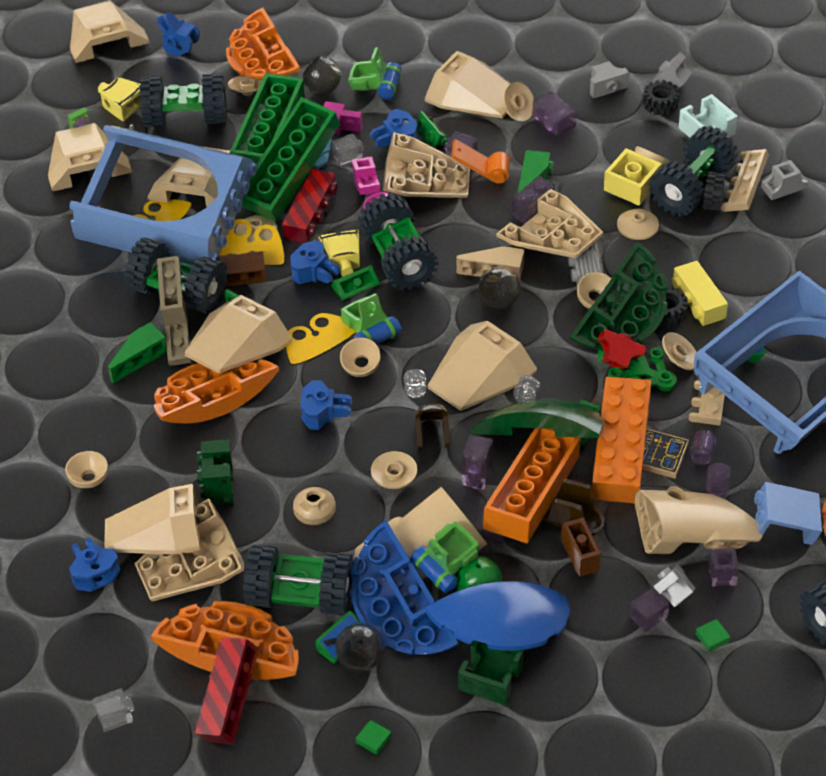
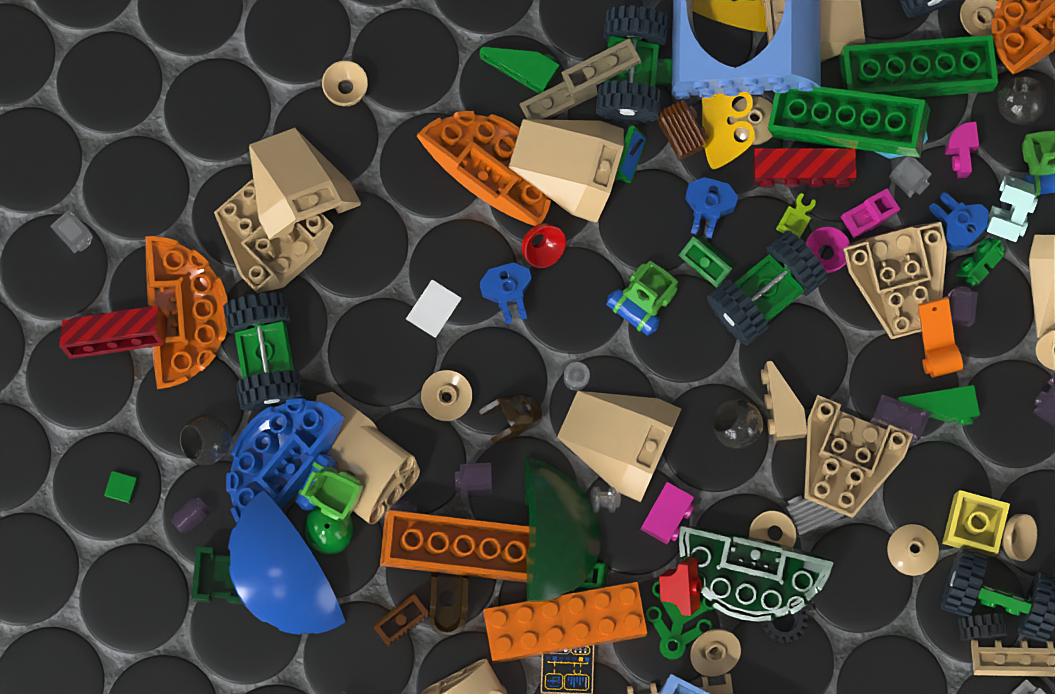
camera: 65 degrees right, 30 degrees up
(91, 565) = (229, 139): blue hinge -> none
(214, 471) = (381, 206): dark green piece -> none
(293, 372) = (548, 250): none -> red piece
(312, 346) = (602, 246): yellow piece -> none
(312, 467) = (433, 308): none -> white sticker
(314, 512) = (381, 342): tan piece -> none
(326, 642) = (233, 417): slope -> none
(342, 250) = (743, 229): light yellow torso -> none
(344, 220) = (795, 219): none -> lime plate
(356, 349) = (576, 301): tan piece -> none
(403, 90) = (1013, 222): none -> light aqua piece
(423, 685) = (190, 515): none -> clear purple brick
(554, 353) = (667, 513): none -> dark pink brick
(702, 294) = (814, 650): light yellow brick -> none

